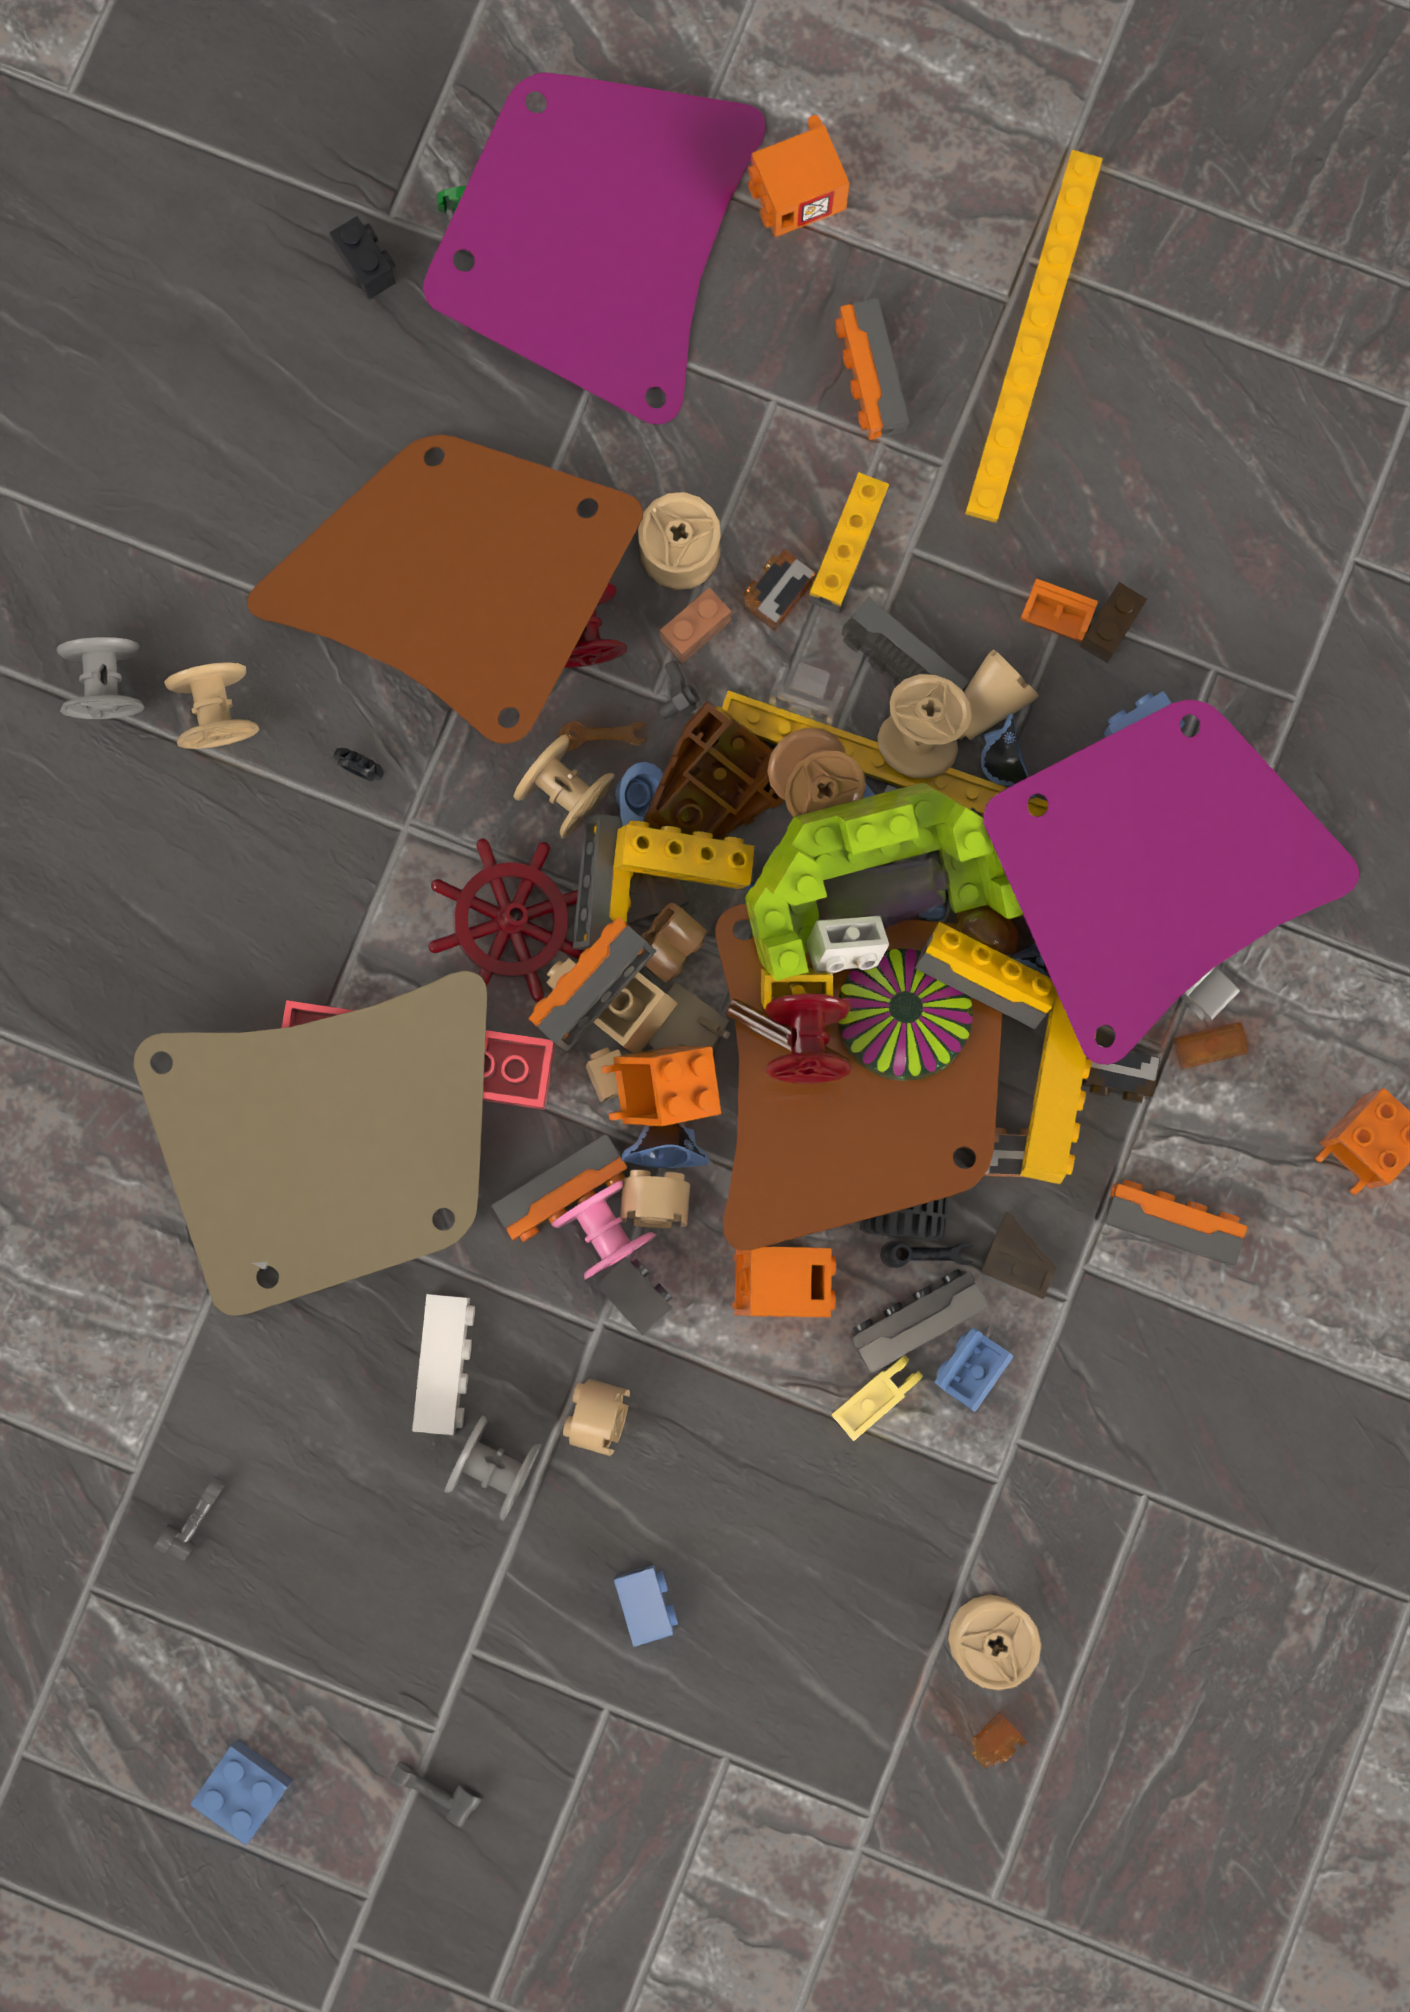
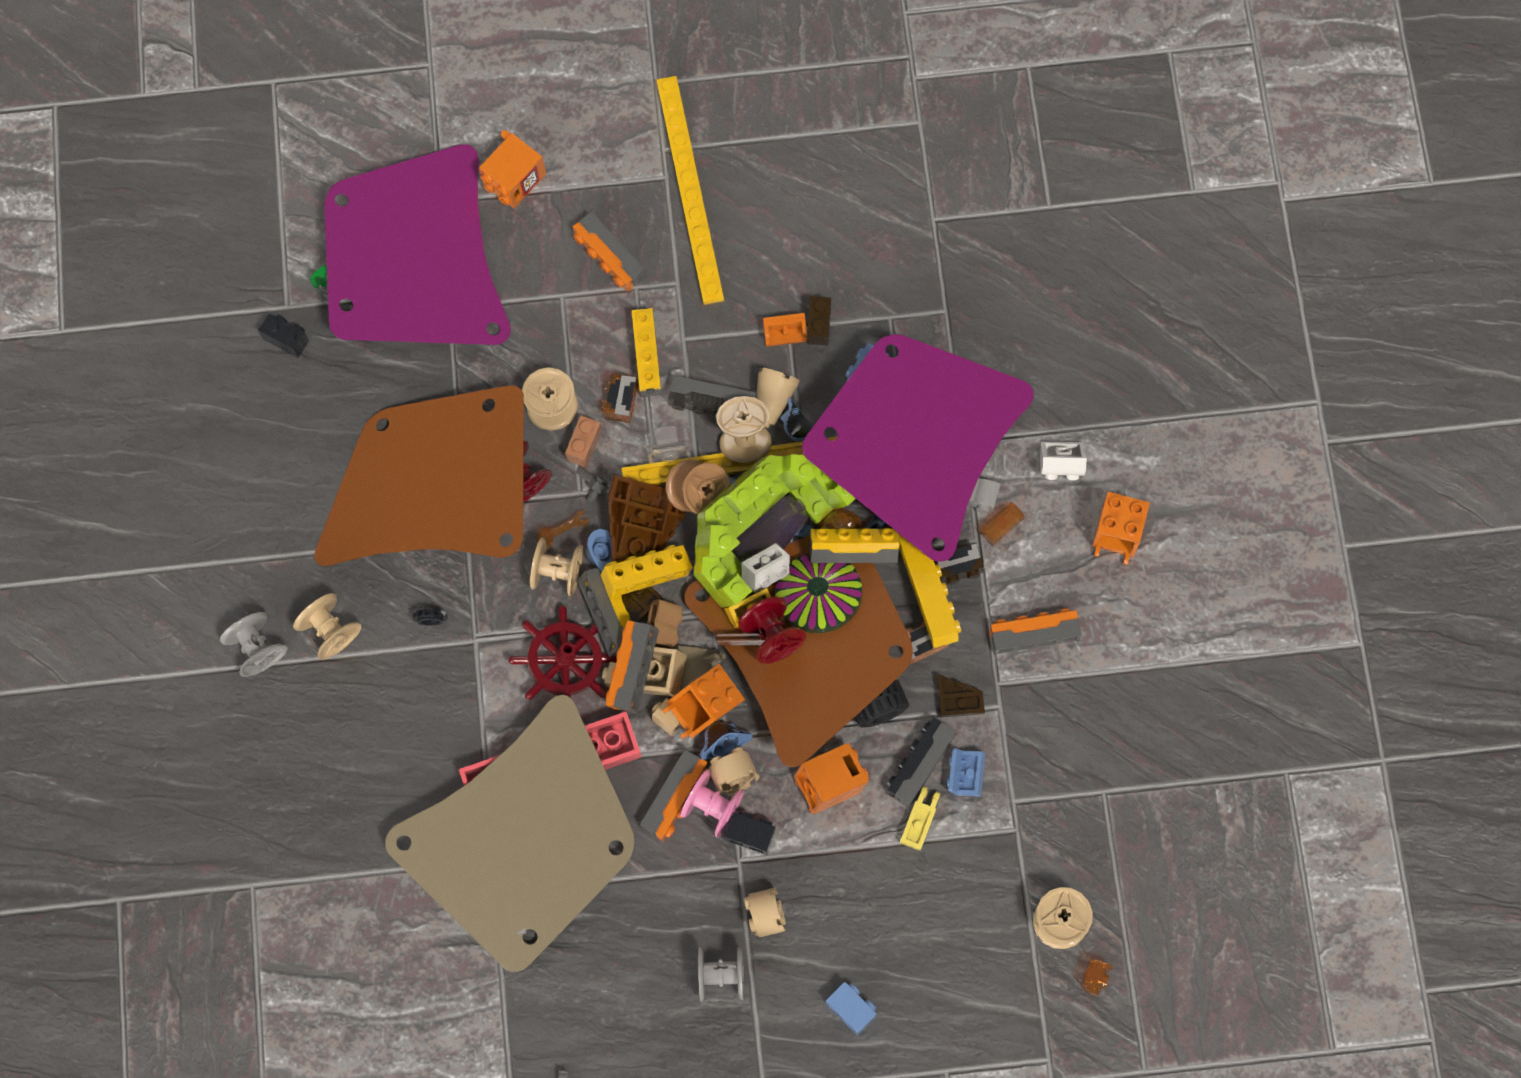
camera: 25 degrees left, 10 degrees down
(441, 1364) = (659, 933): white brick -> none
(889, 1257) = (887, 736): black brick -> none
(1346, 1001) = (1062, 459): none -> white brick

